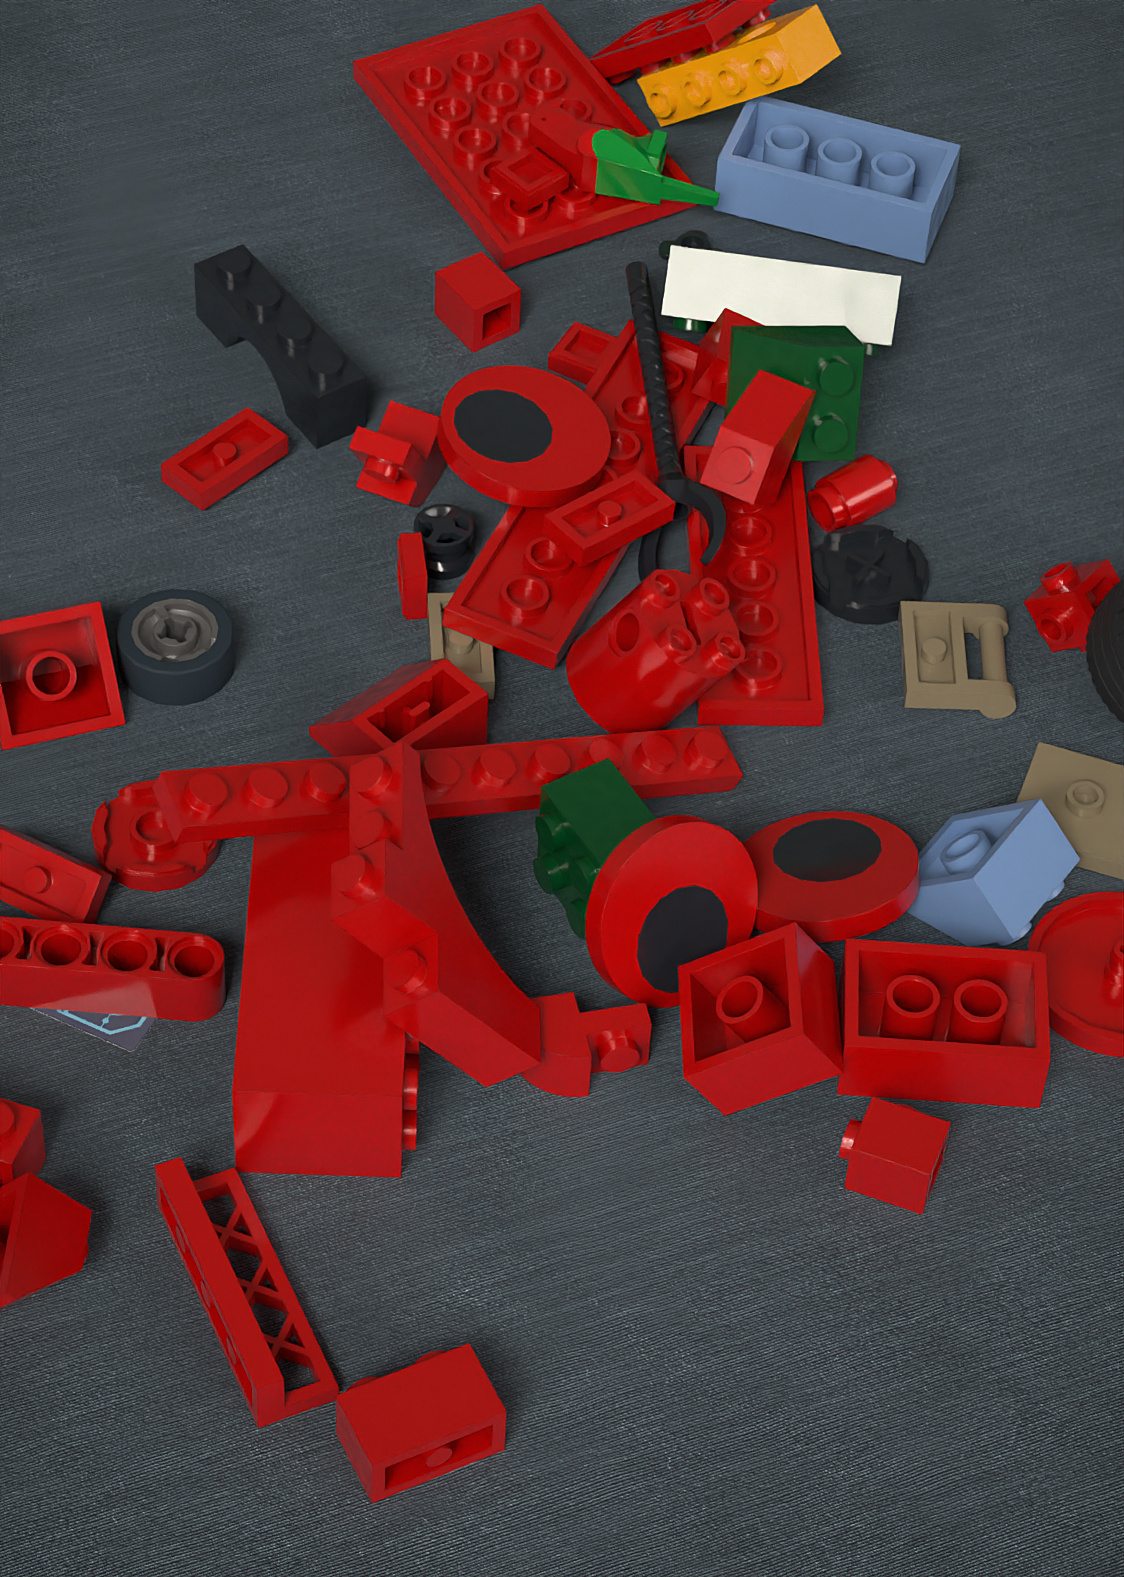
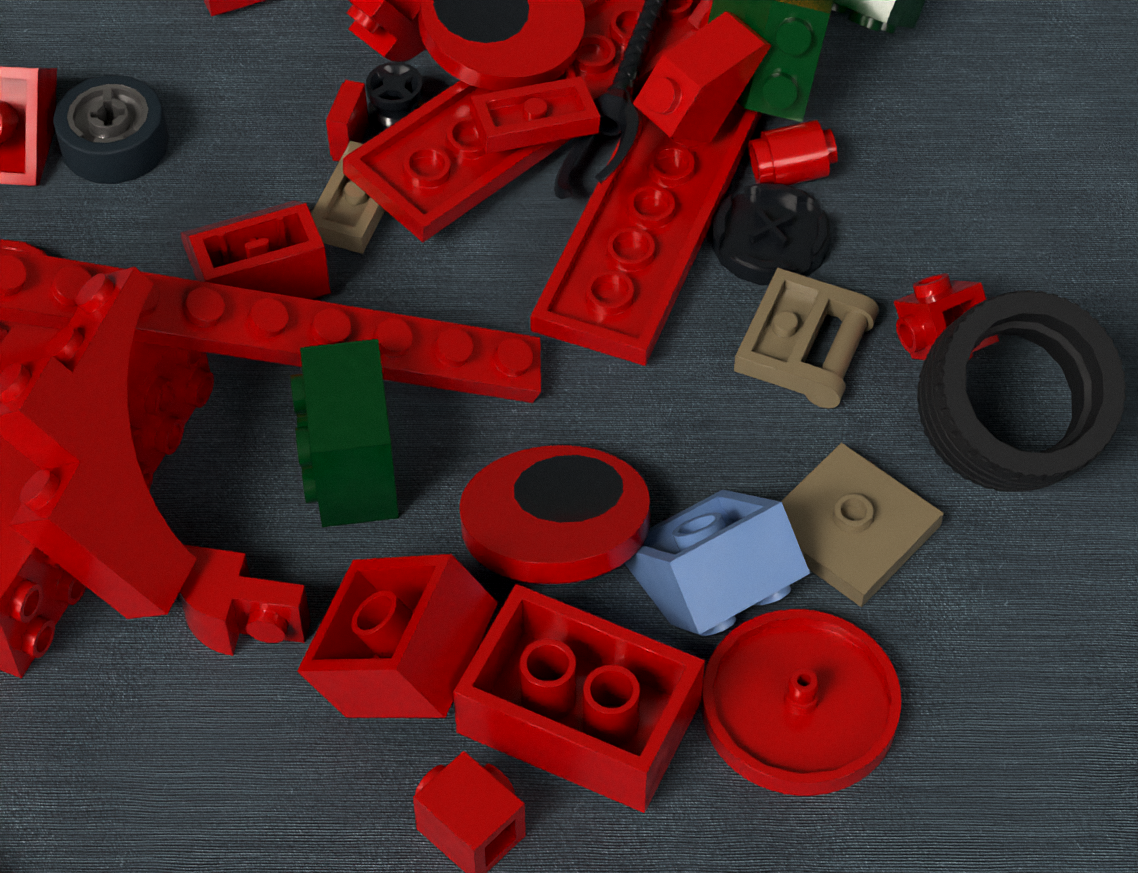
camera: 25 degrees right, 5 degrees up
(655, 652) = (497, 251): red cylinder -> none
(665, 901) = (366, 492): red piece -> none

